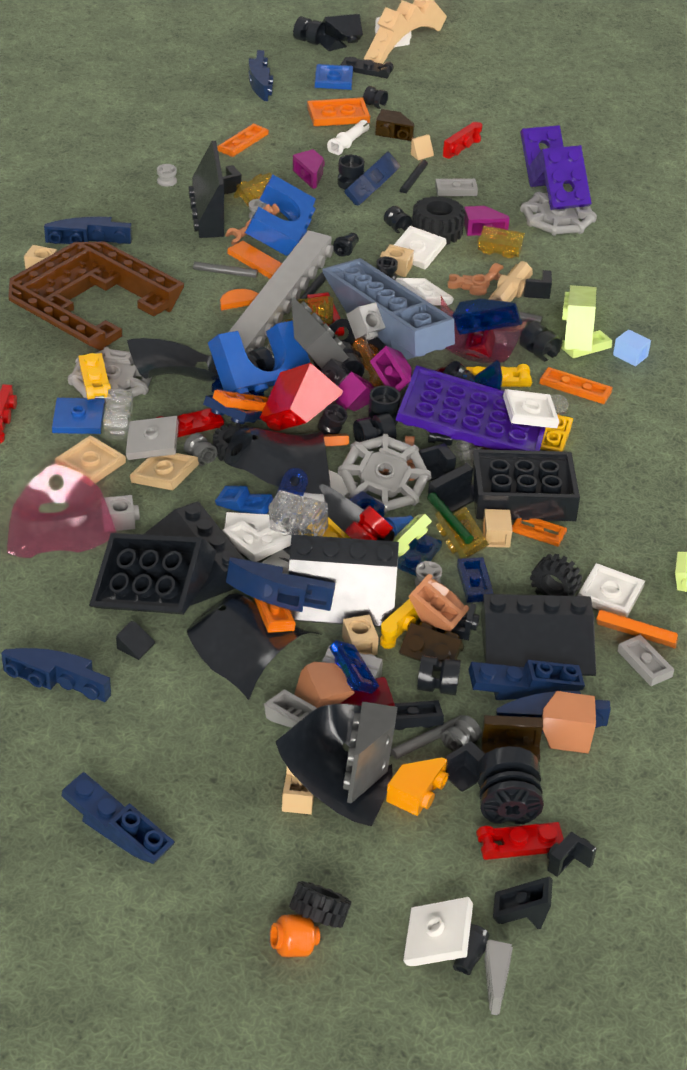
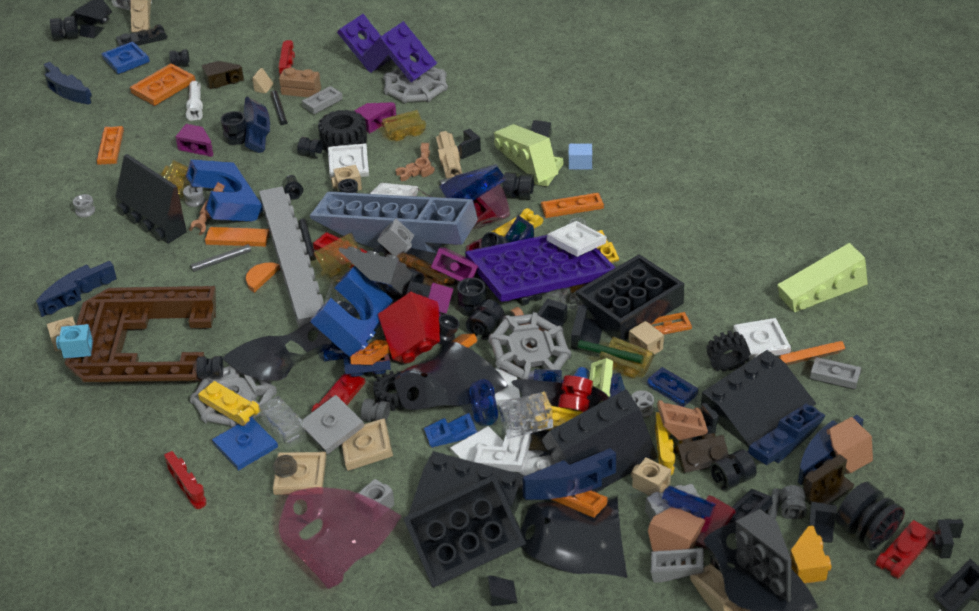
camera: 35 degrees left, 0 degrees up
(29, 264) = (75, 341): none -> medium azure brick
(78, 445) = (285, 466): none -> clear smoke plate
(107, 340) = (210, 367): none -> black wheel
(450, 162) = (299, 82): none -> medium nougat brick
(622, 309) = (541, 127): none -> black slope

